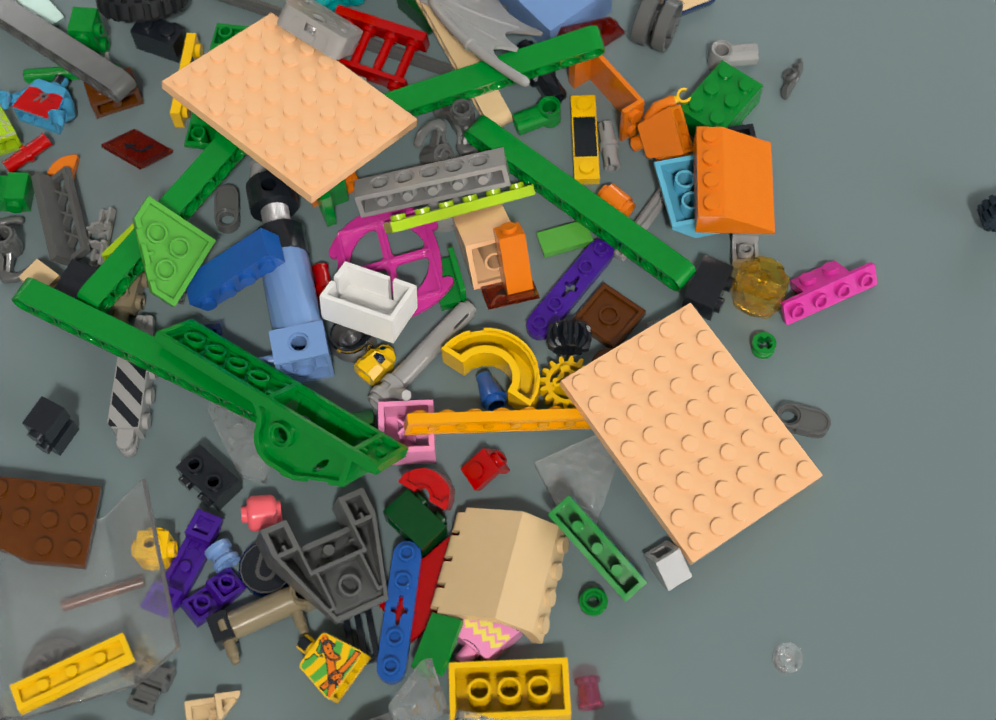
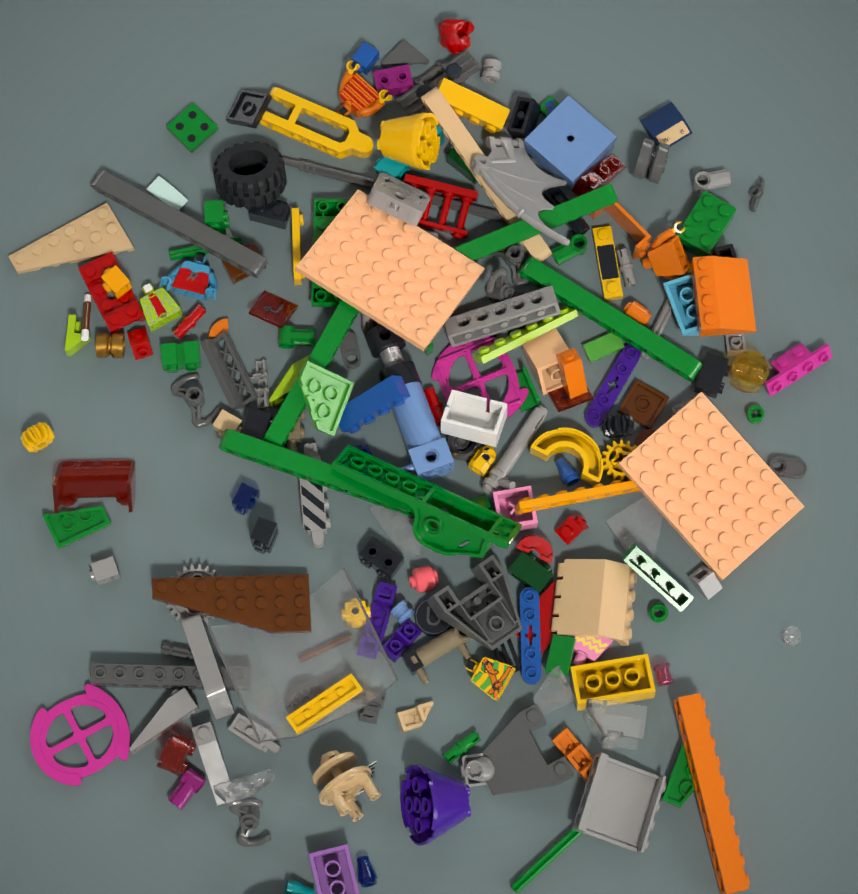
camera: 10 degrees left, 10 degrees up
(40, 377) = (245, 499): none -> clear blue brick
(153, 183) = (291, 337): none -> green piece

